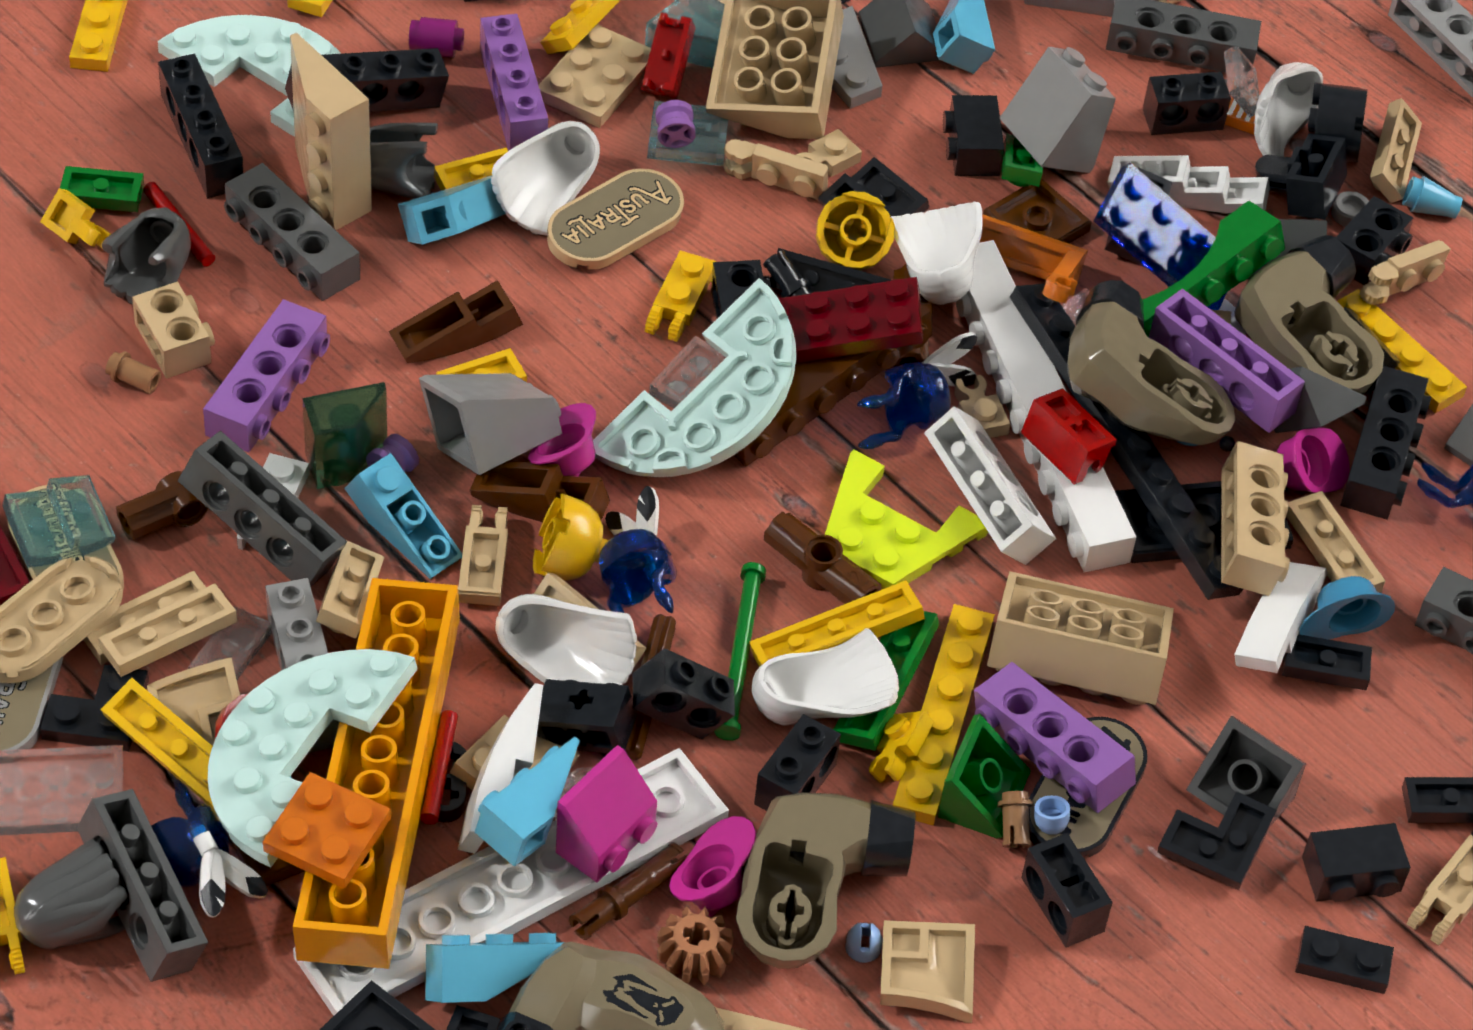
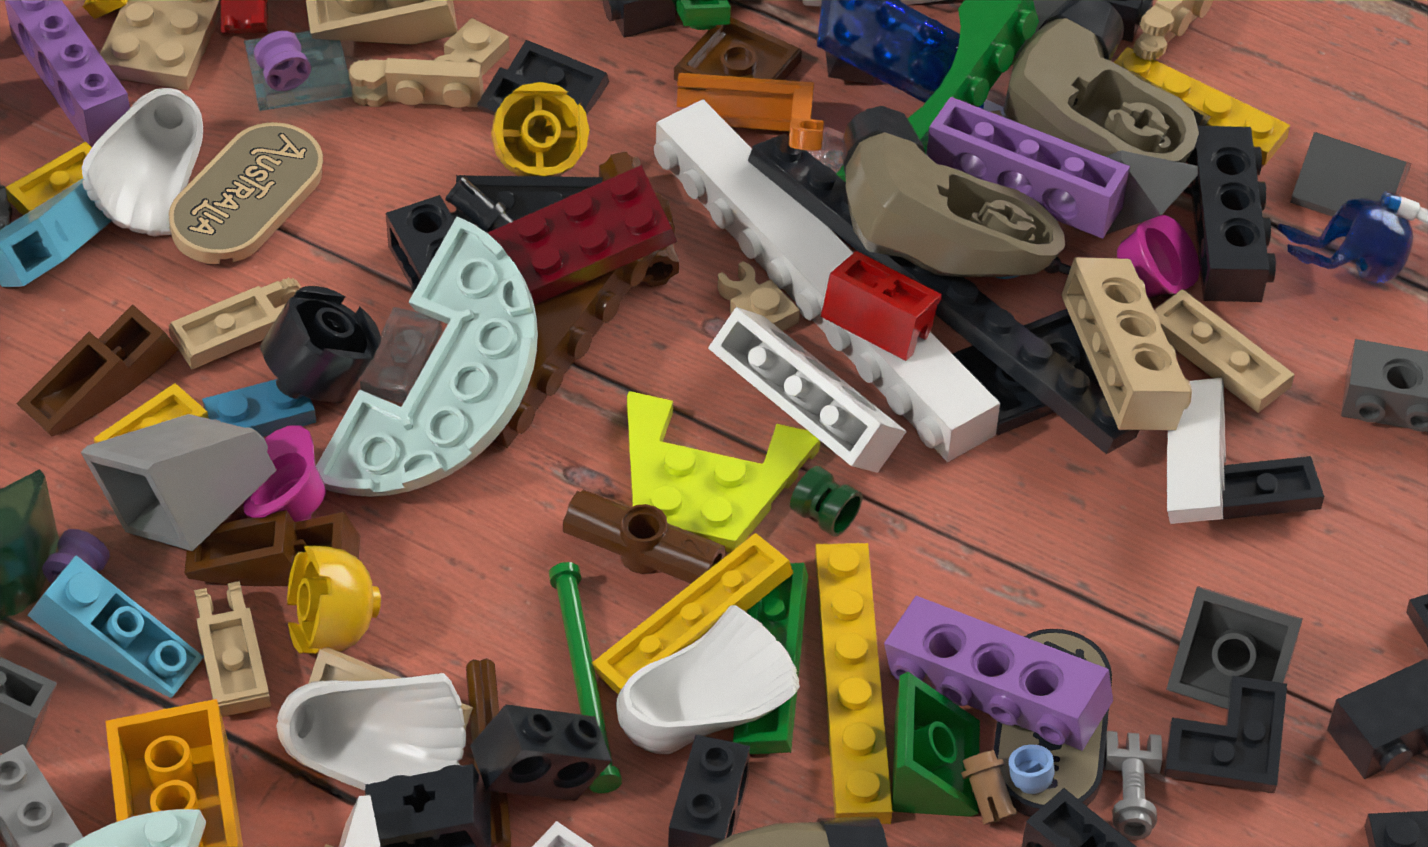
camera: 15 degrees left, 0 degrees up
(349, 589) = (79, 743): tan plate -> none
(572, 384) = (260, 408): none -> dark azure plate
(577, 315) = (230, 323): none -> tan hinge
(627, 349) = (319, 345): none -> black brick
(635, 558) = (421, 598): clear blue hair -> none
(680, 294) = (358, 255): yellow hinge -> none
(901, 739) = (818, 729): yellow plate -> none
(920, 390) = (684, 300): clear blue hair -> none
(941, 249) = (650, 124): white hair -> none
(976, 576) = (826, 501): none -> dark green wheel
(1082, 638) = (981, 542): tan slope -> none
(1120, 872) = (1133, 815): none -> light grey hinge
(1348, 608) = (1268, 417): dark azure piece -> none

